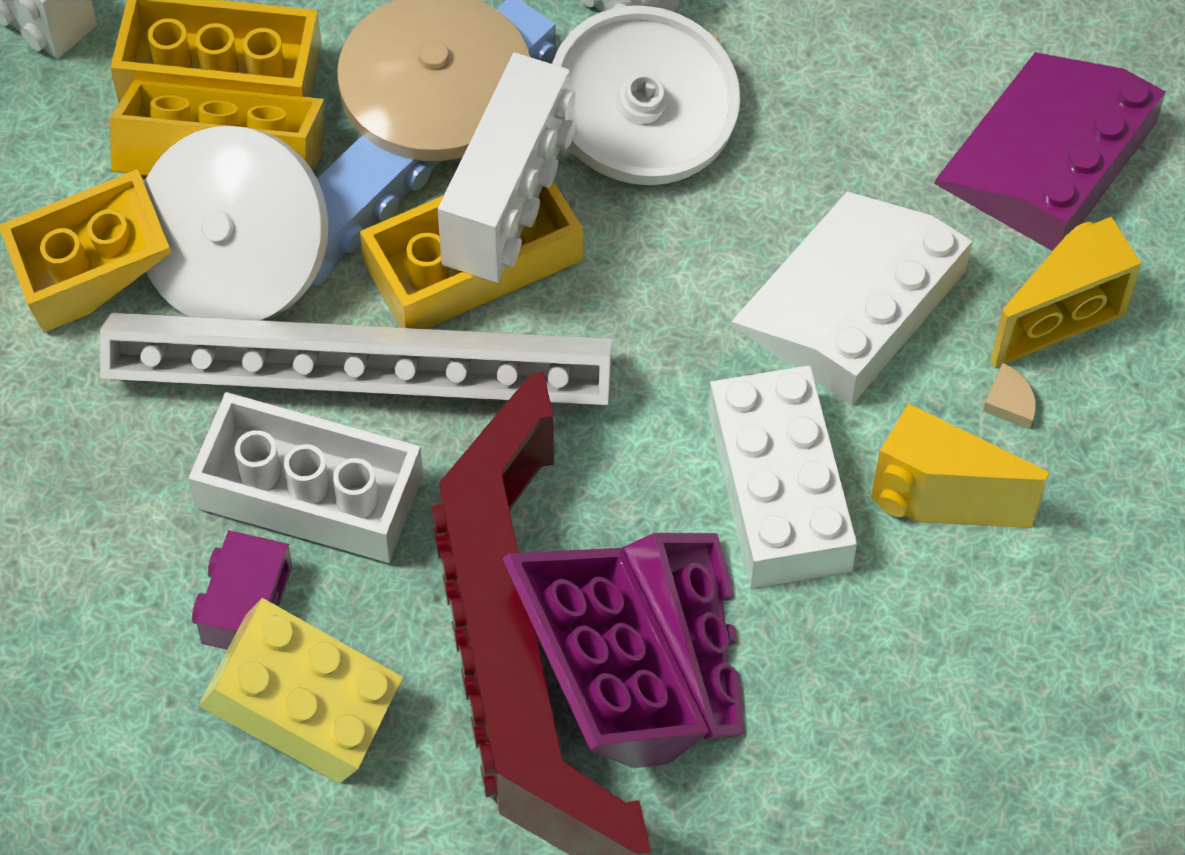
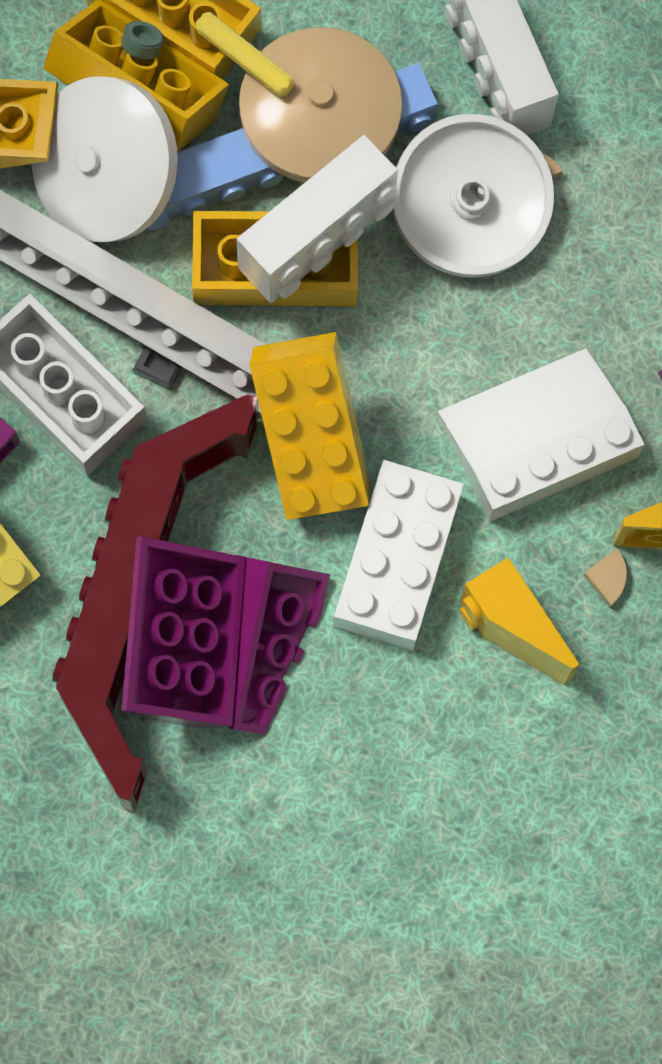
camera: 25 degrees right, 15 degrees up
(208, 91) = (142, 40): none -> sand green tile
(329, 54) = (244, 54): none -> light yellow axle
(402, 415) = (156, 368): none -> dark grey tile
(618, 375) = (310, 425): none -> yellow brick

